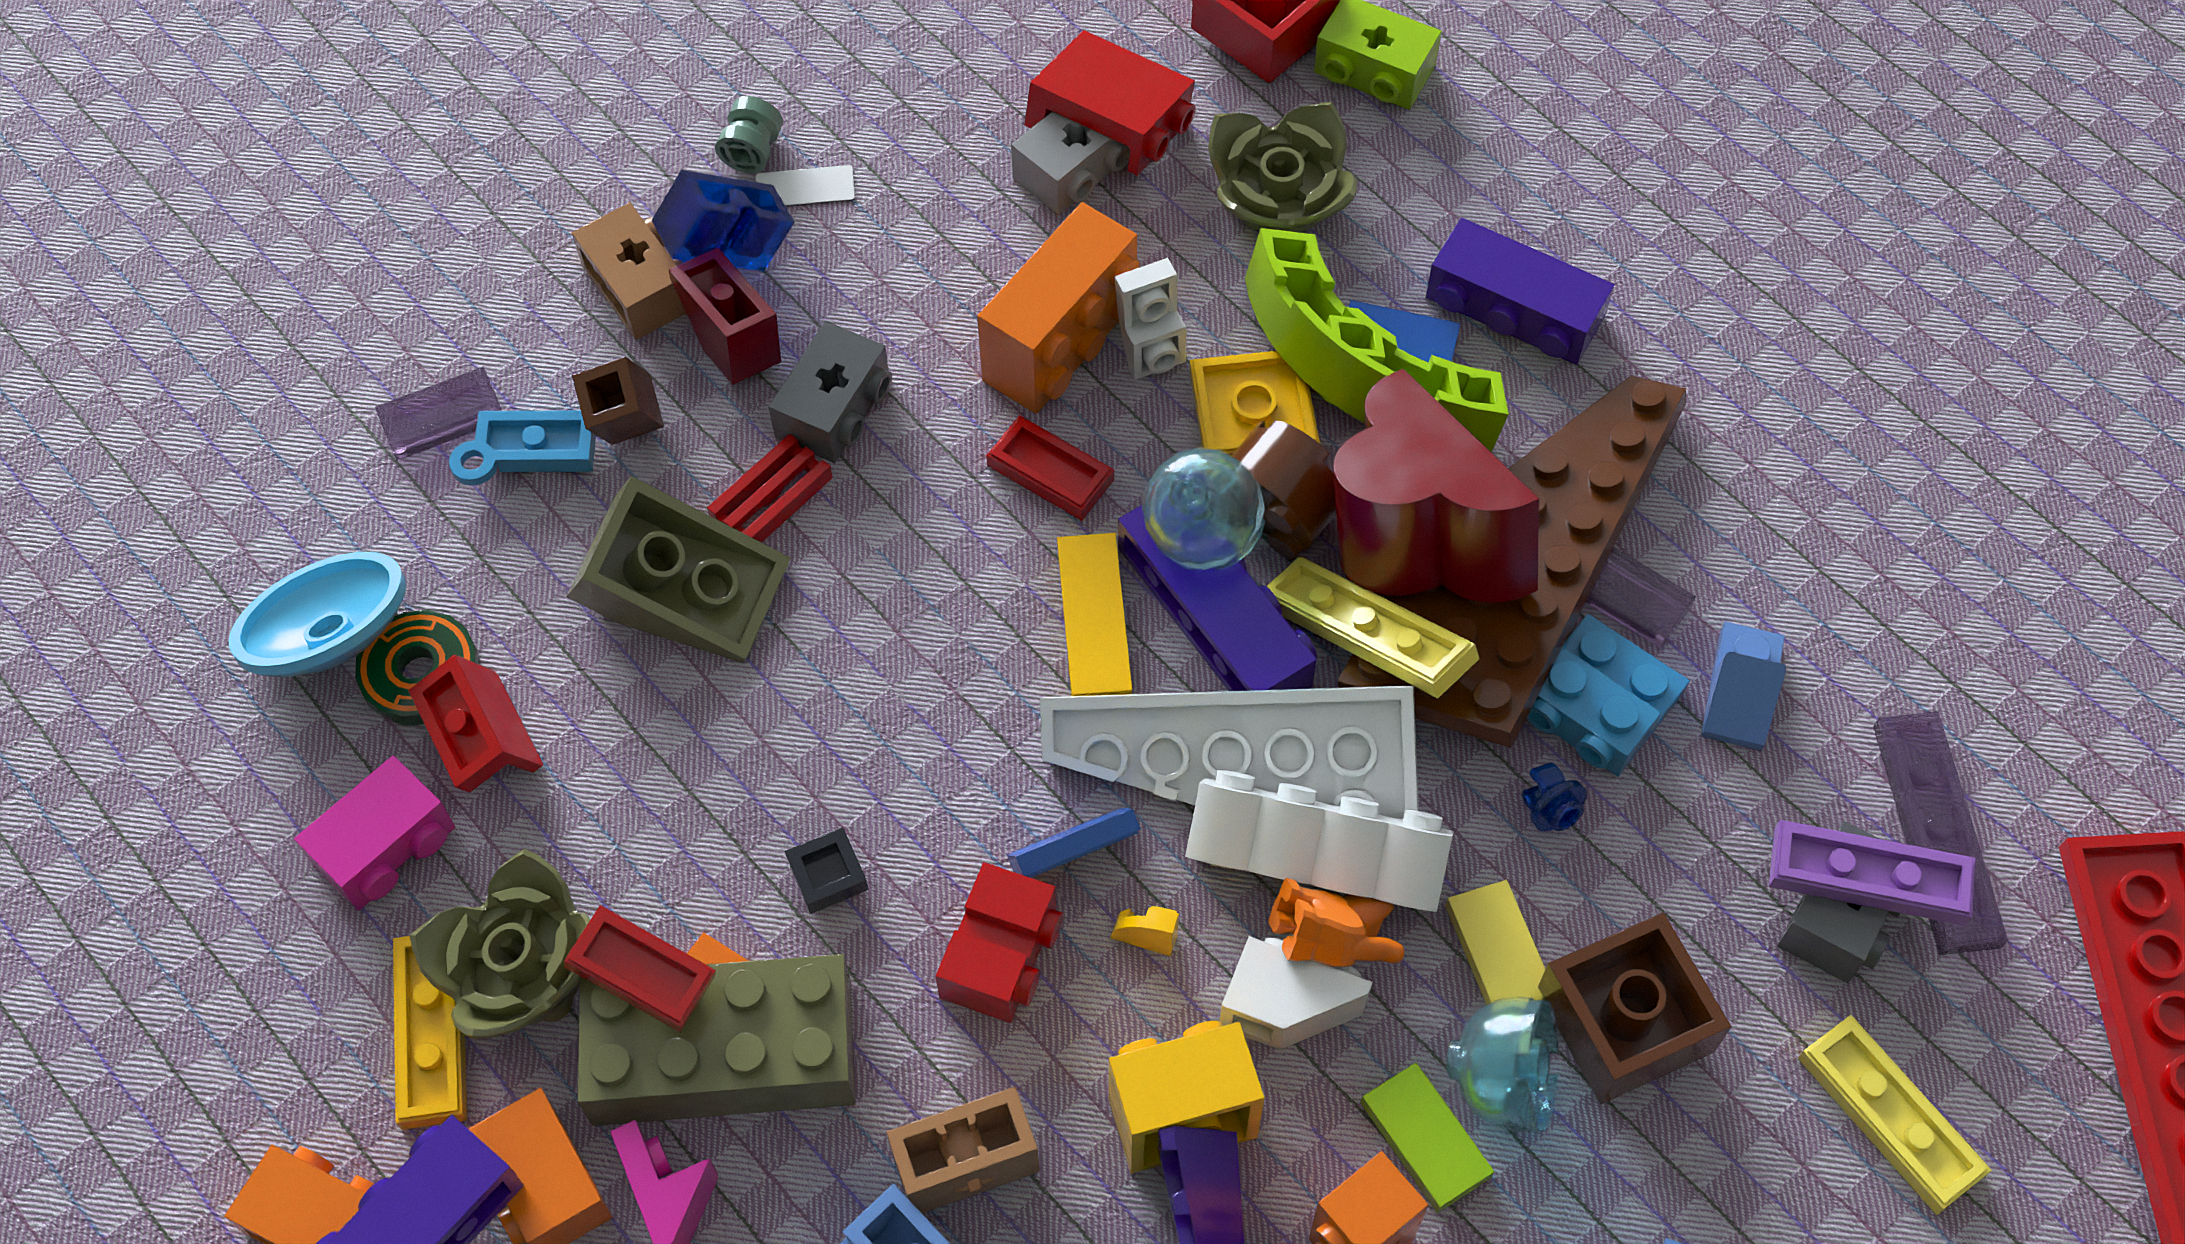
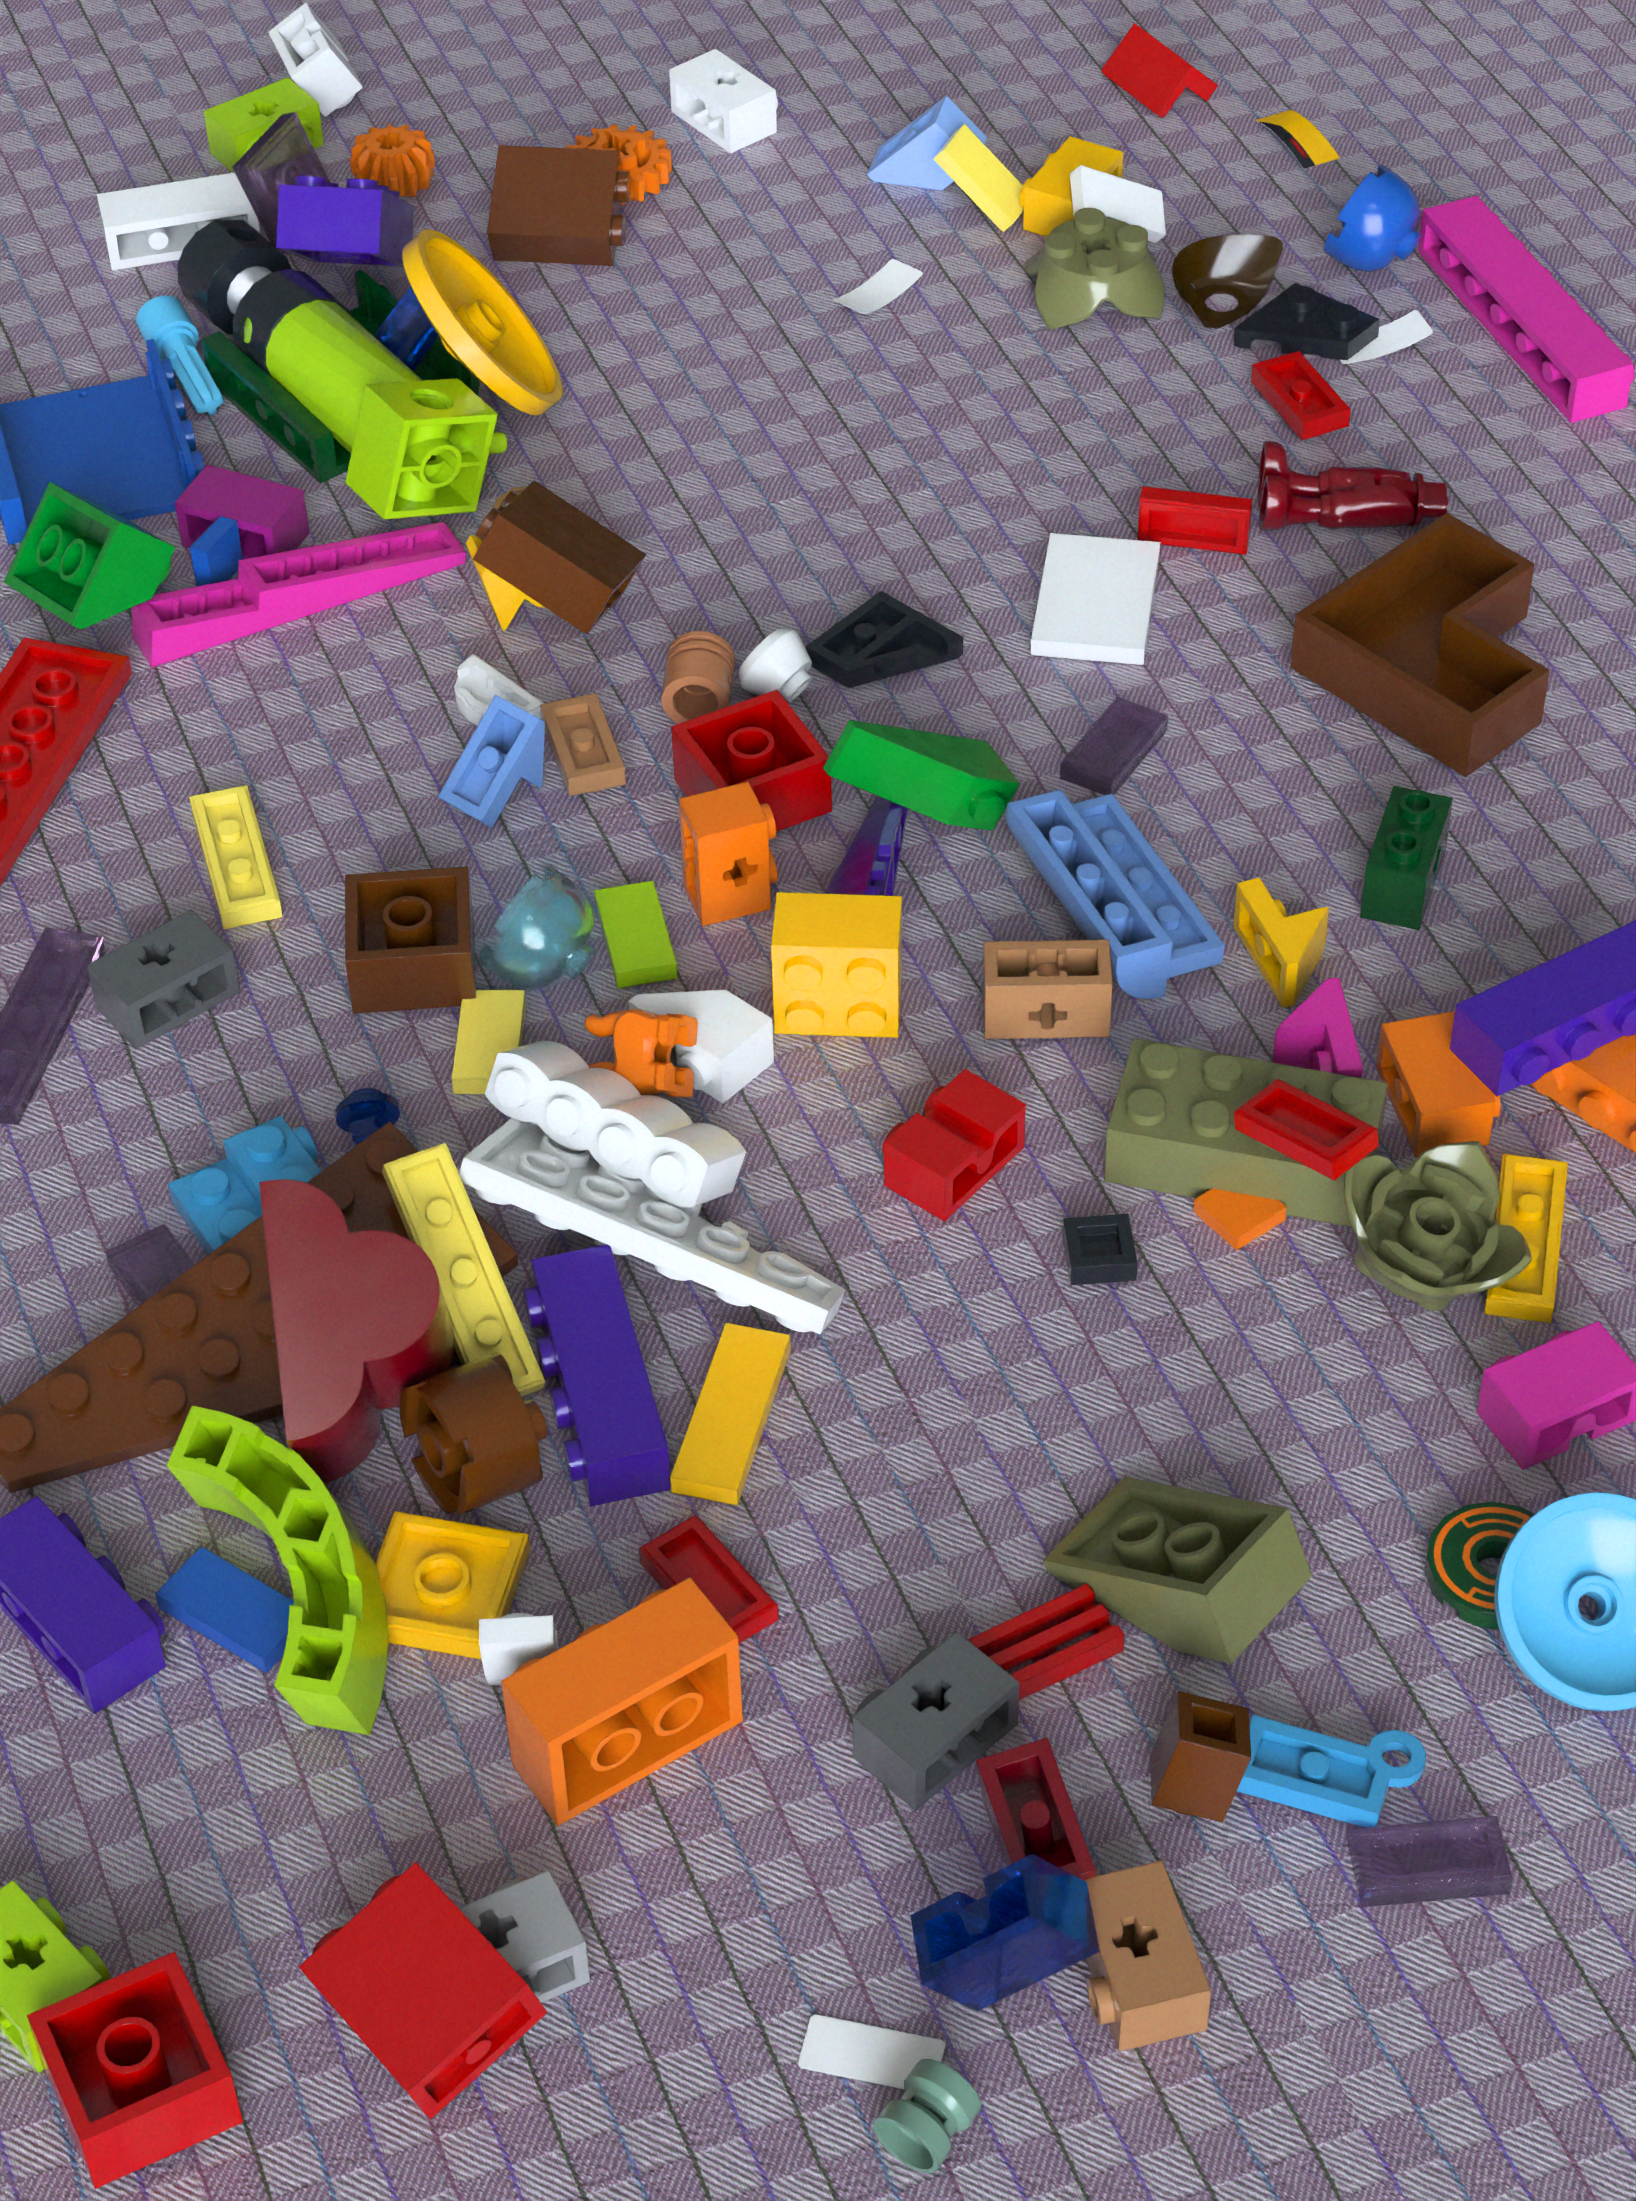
camera: 160 degrees left, 15 degrees down
(472, 722) = (1436, 1462): red panel -> none
(1074, 842) = (847, 1201): blue tile -> none
(1152, 932) = (806, 1123): yellow tile -> none
(1203, 509) = (581, 1376): clear light blue cylinder -> none
(1282, 173) = (238, 1777): olive brick -> none
(1744, 686) = (115, 1178): medium blue slope -> none
(1872, 872) = (138, 954): medium lavender tile -> none

